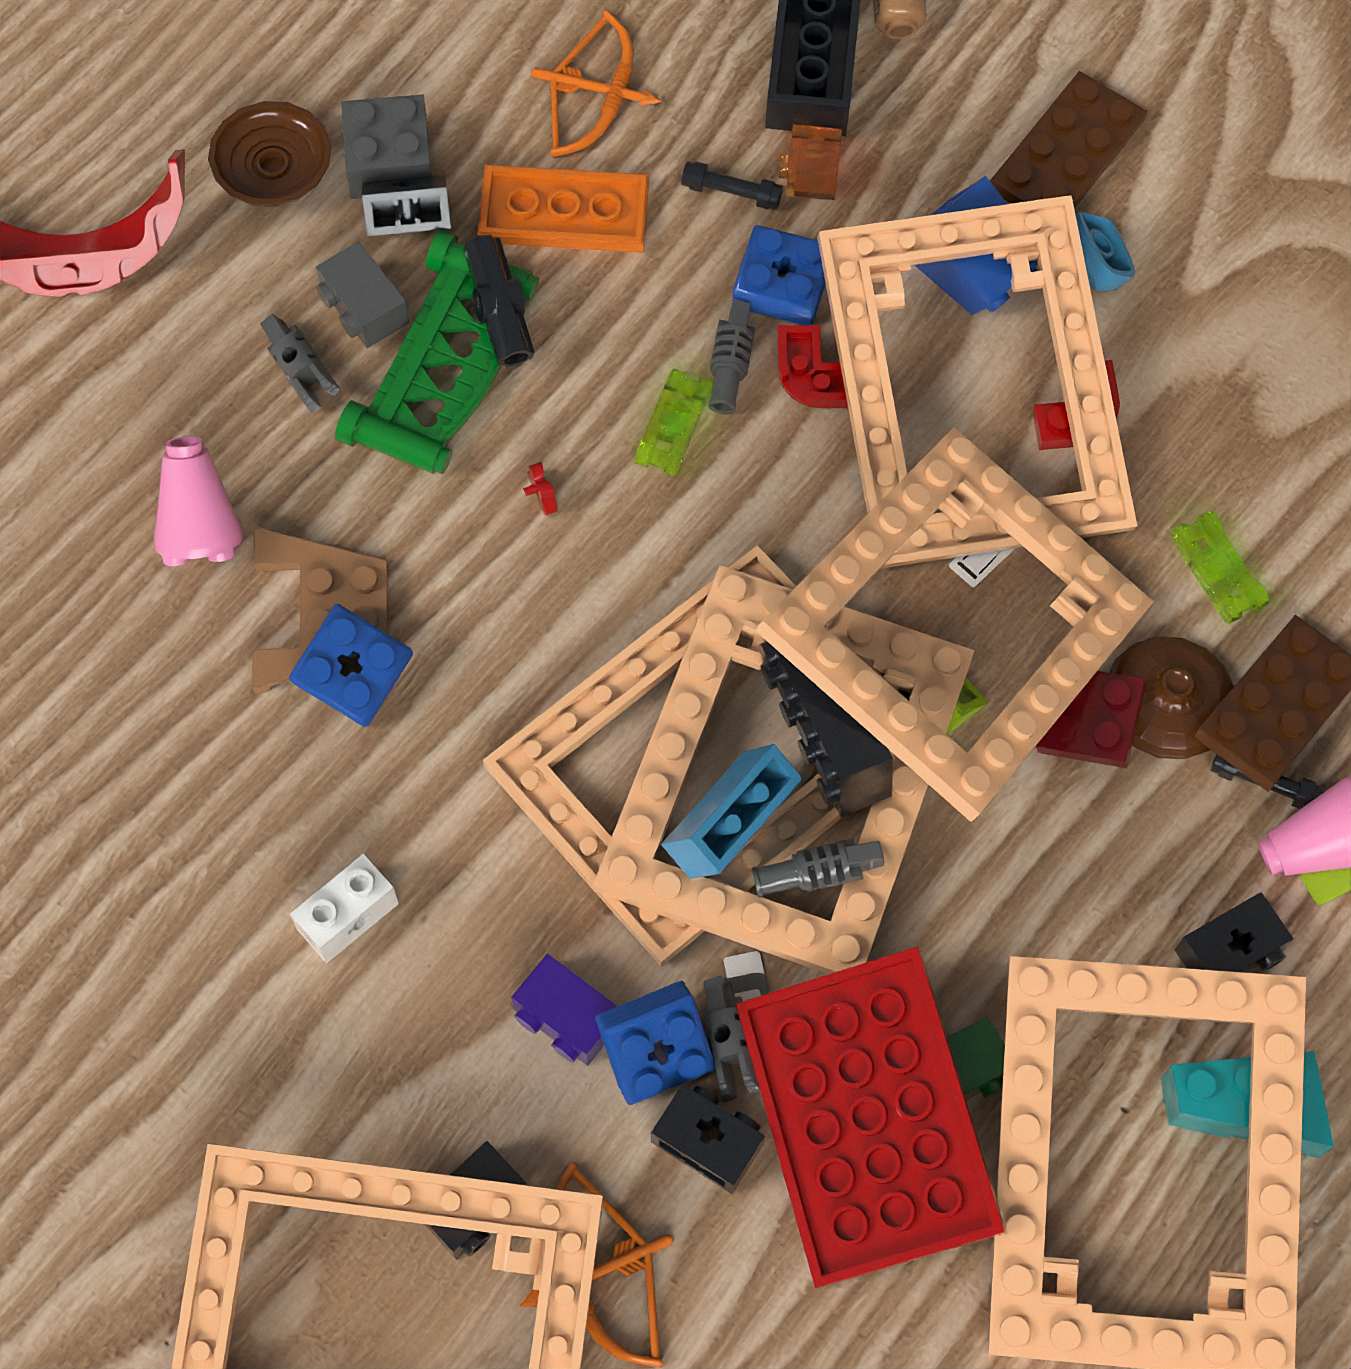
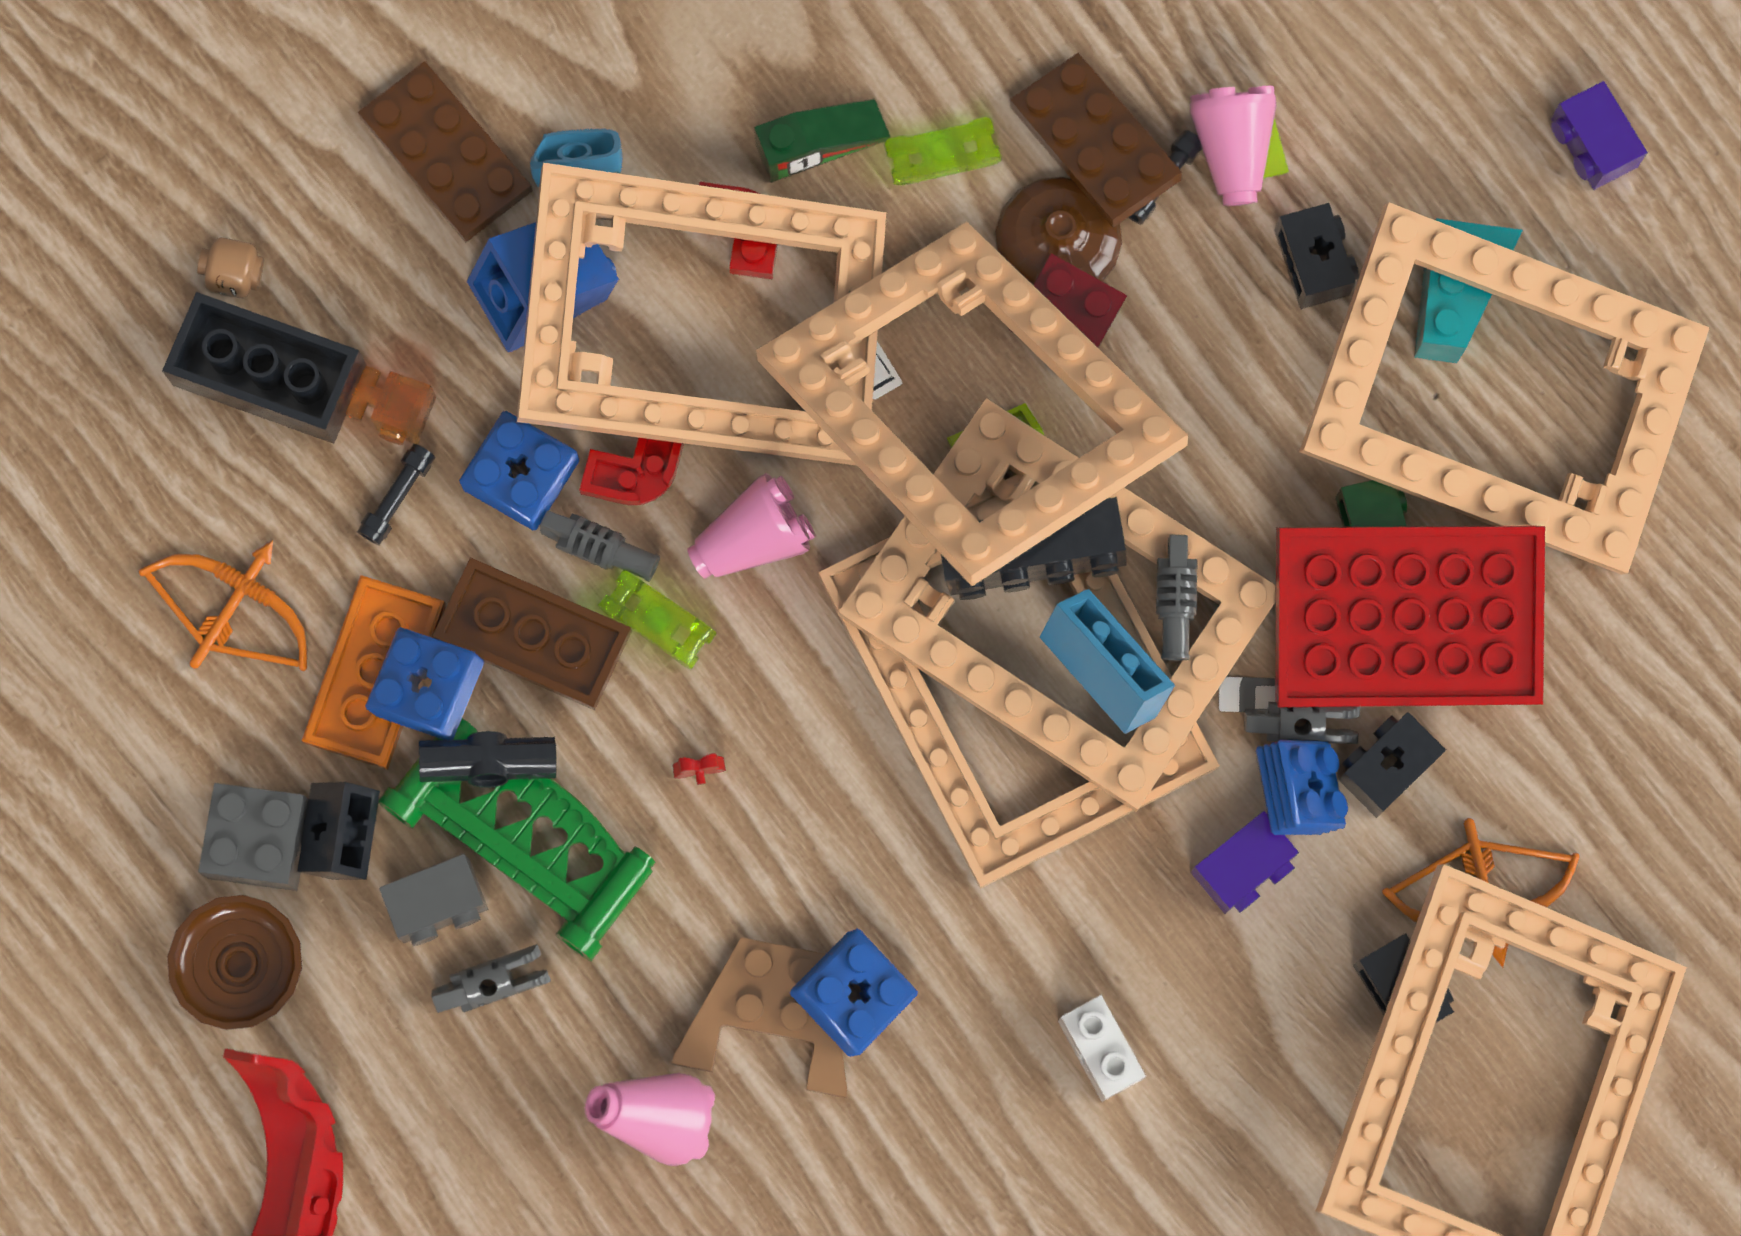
camera: 75 degrees left, 10 degrees up
(556, 237) = (431, 709): none -> blue brick
(631, 322) = (533, 633): none -> reddish brown plate
(783, 479) = (752, 531): none -> bright pink cone
(1192, 449) = (818, 136): none -> dark green slope

